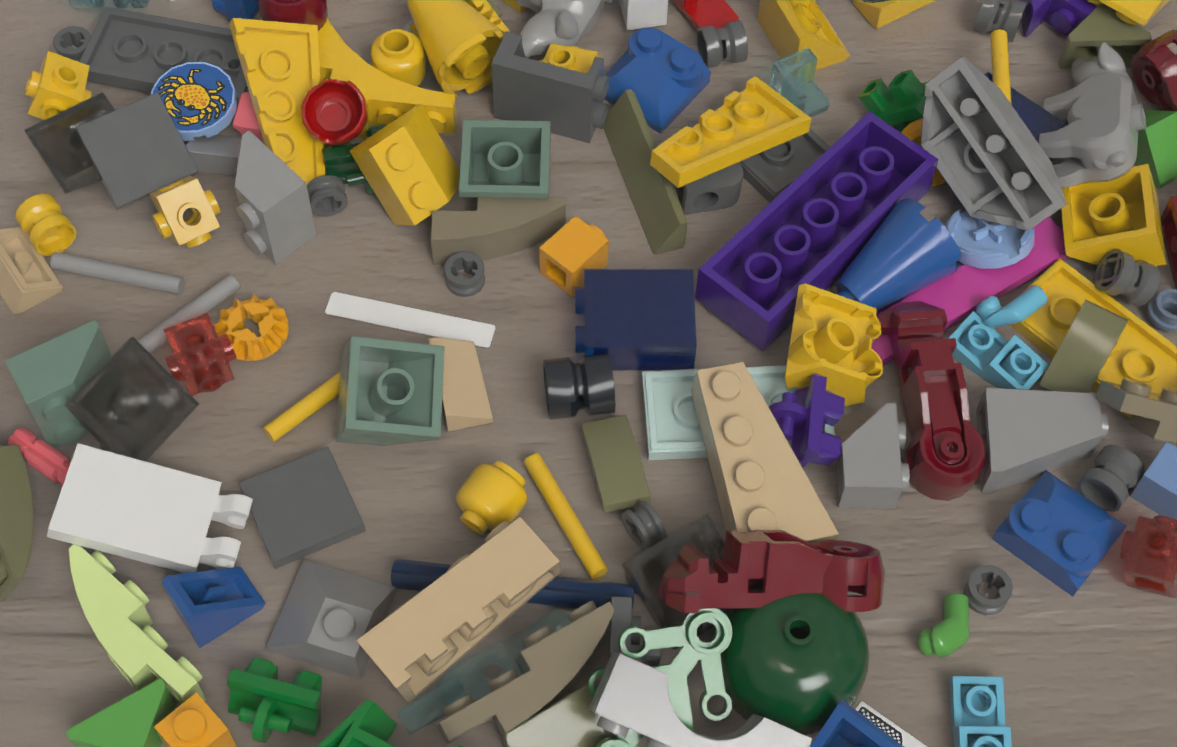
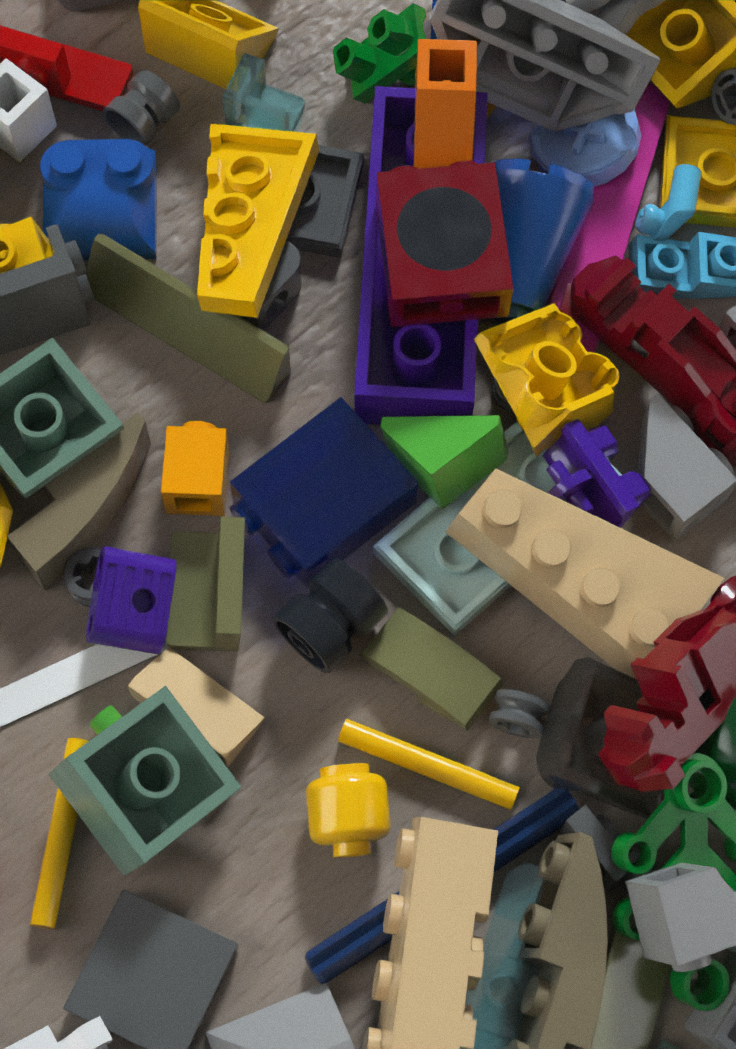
camera: 40 degrees left, 10 degrees up
(471, 296) = (131, 600): none -> dark purple piece
(525, 325) = (207, 588): none -> olive panel
(733, 340) = (446, 451): none -> bright green slope
(824, 217) = (443, 243): none -> dark red brick
(894, 142) = (444, 102): none -> orange slope

